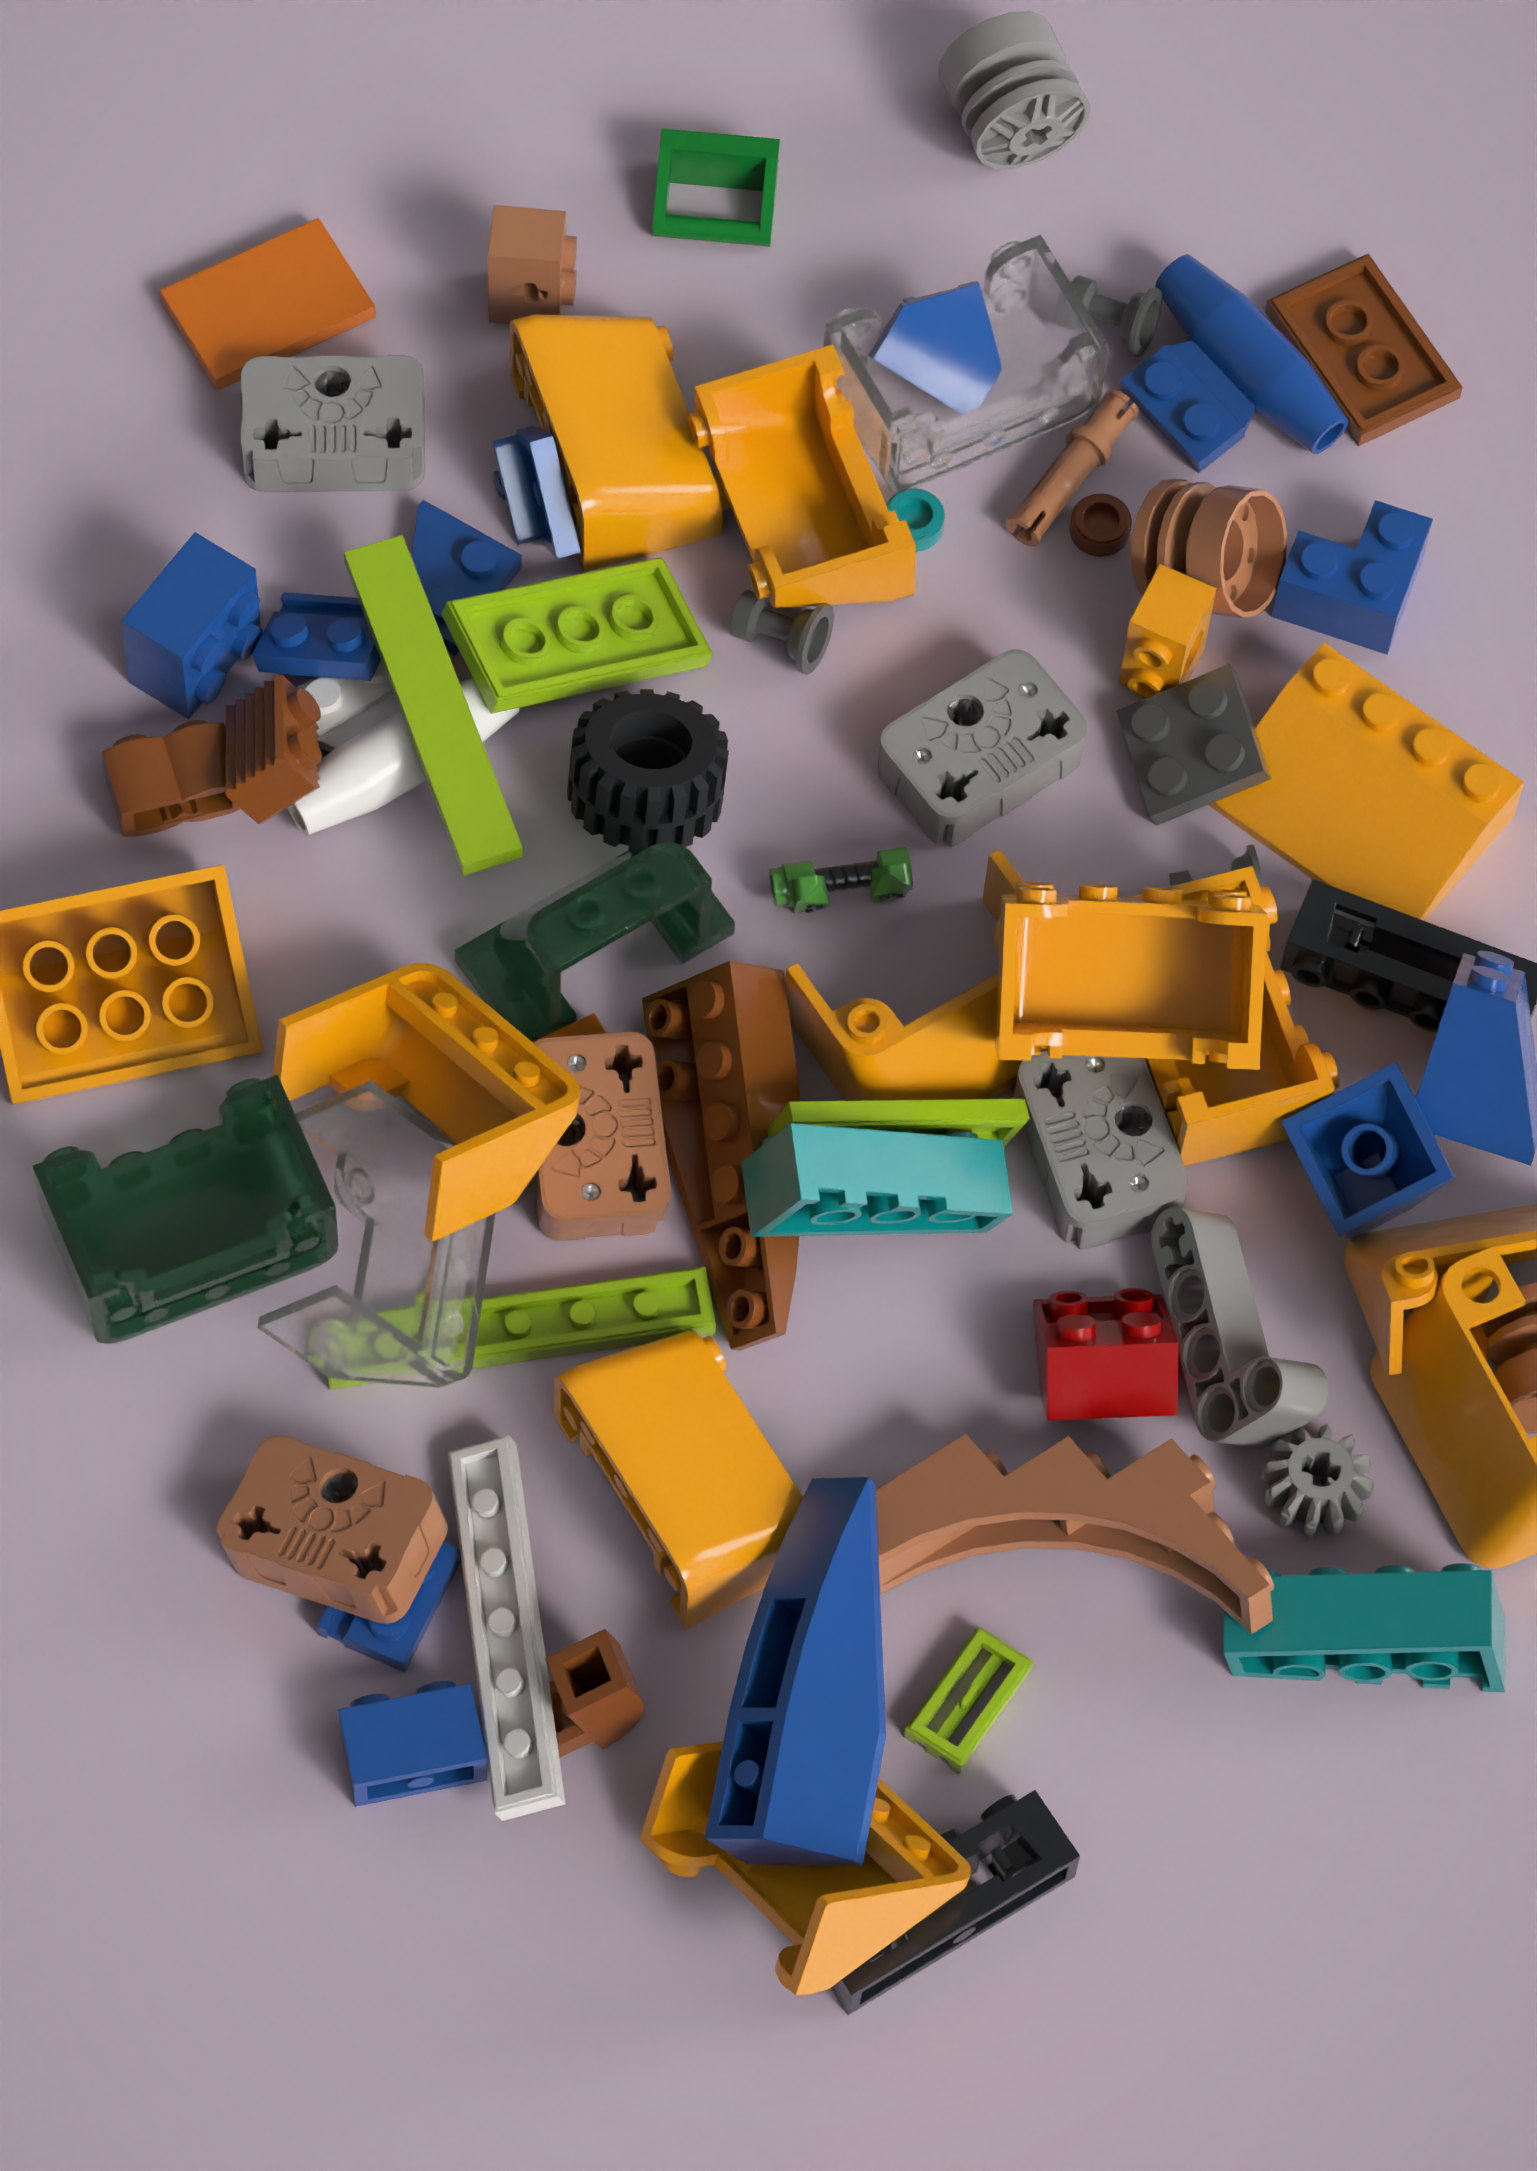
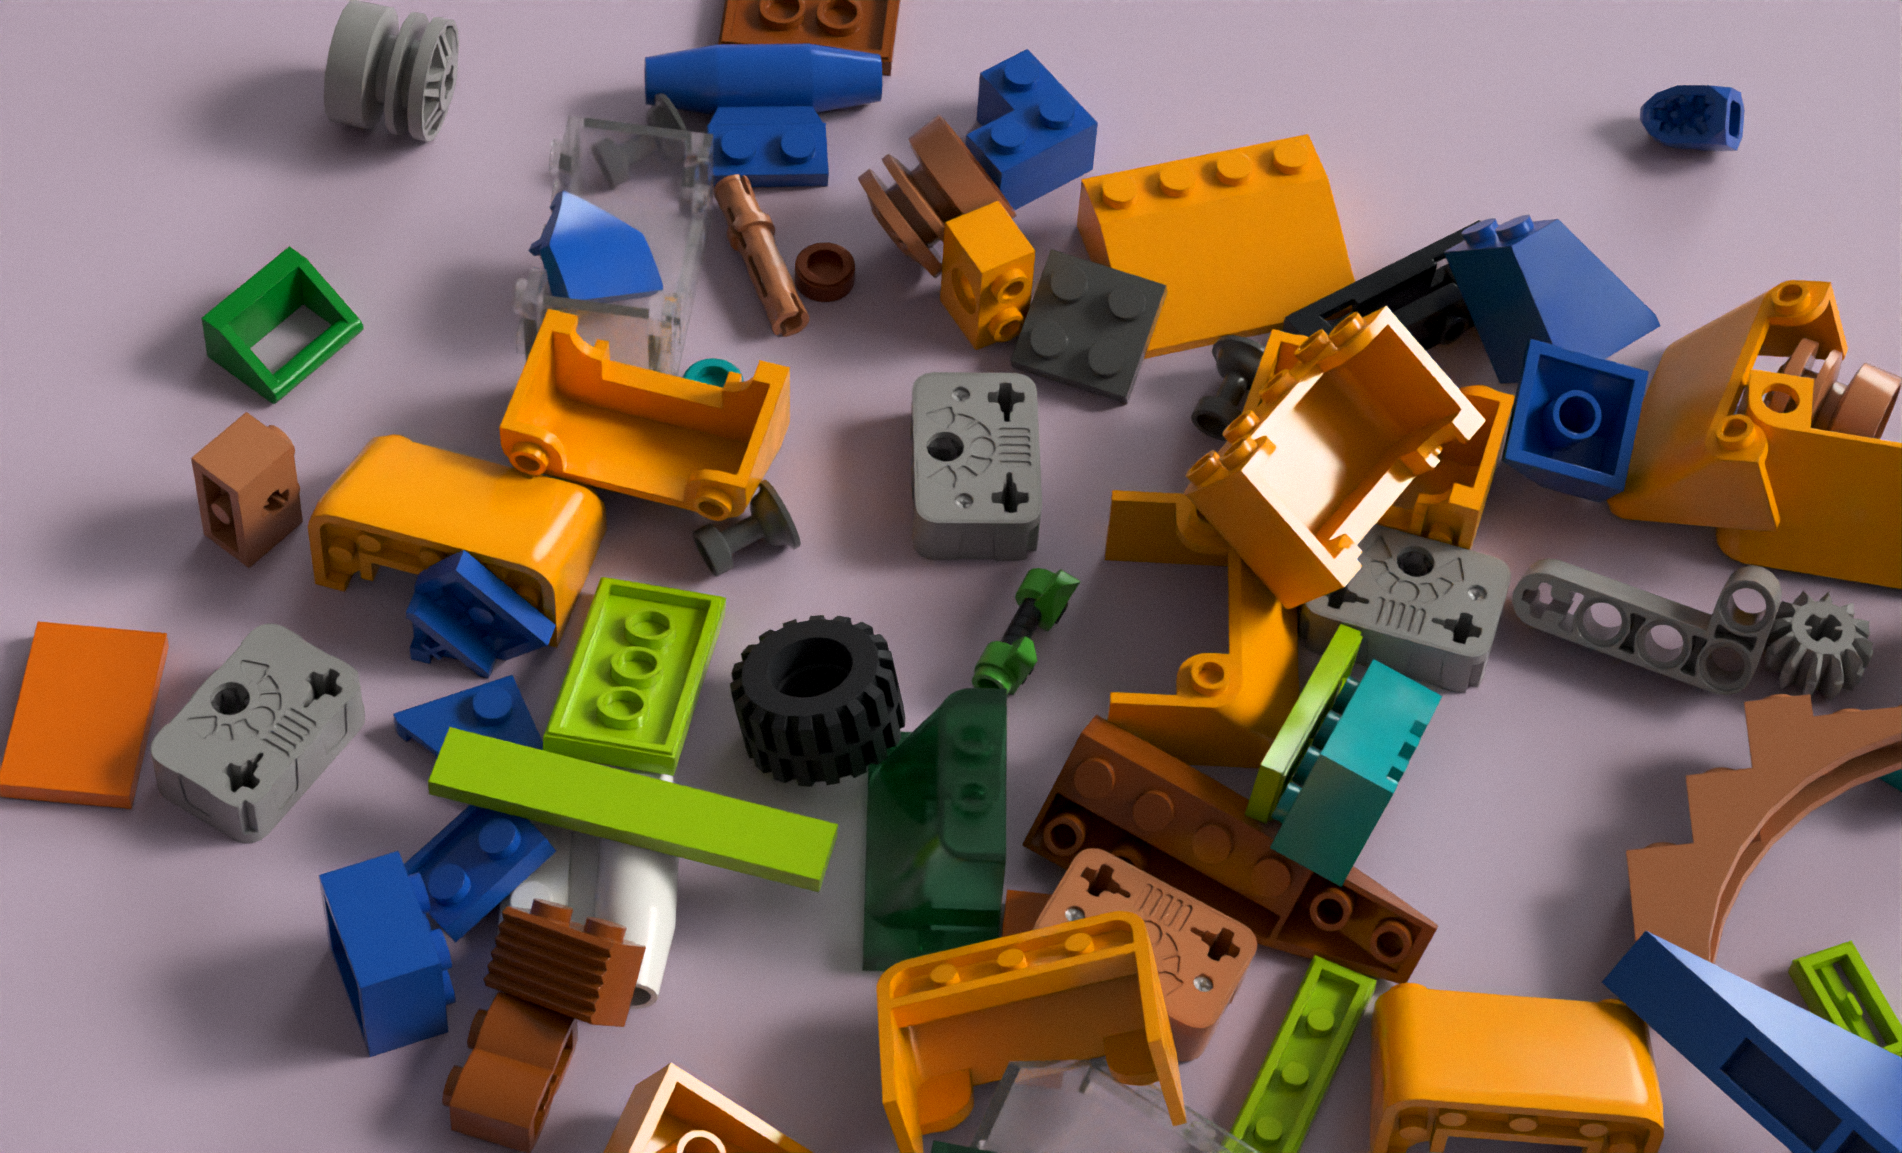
camera: 55 degrees left, 10 degrees down
(1106, 1355) = (1607, 718): red slope -> none

